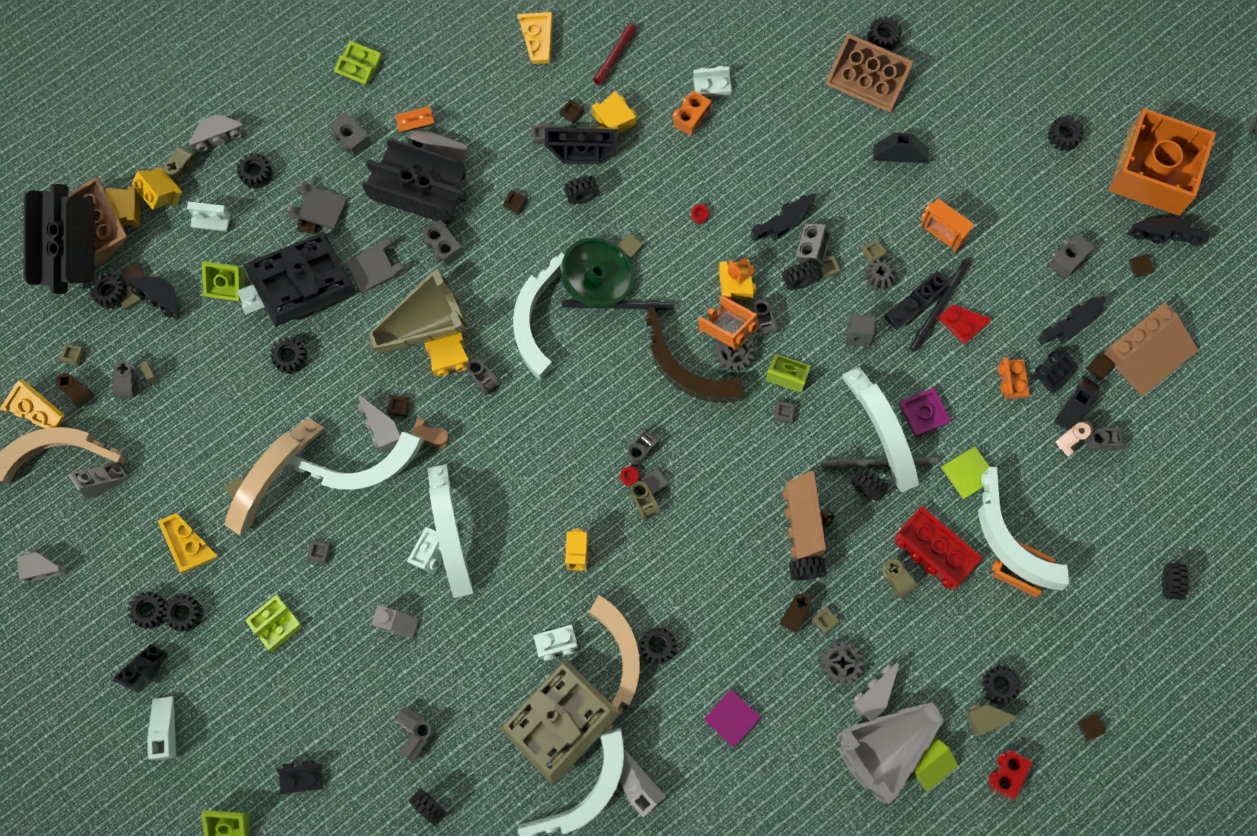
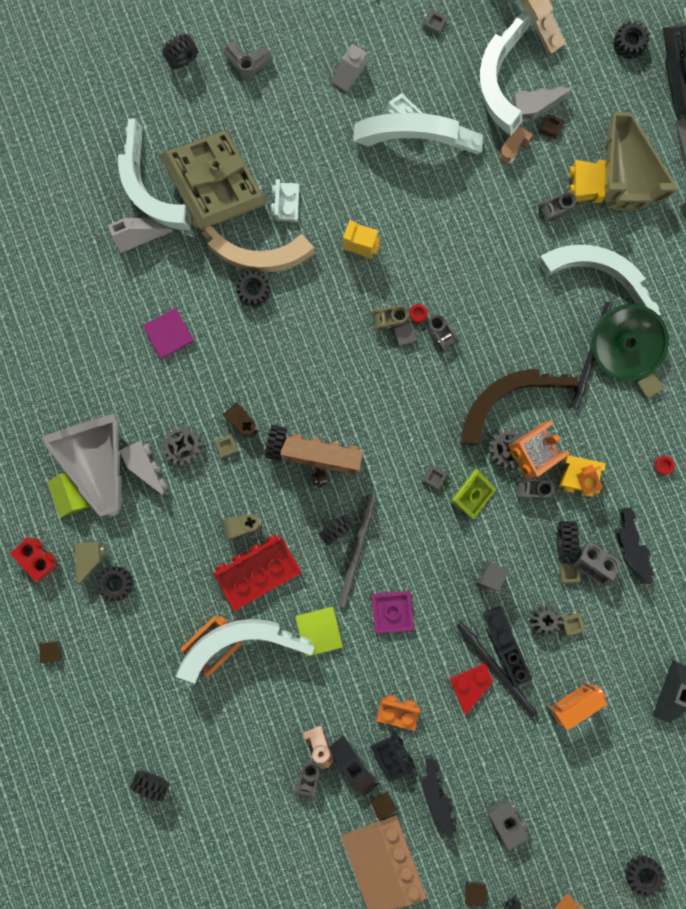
camera: 105 degrees right, 10 degrees up
(887, 427) = (388, 561): light aqua arch -> none

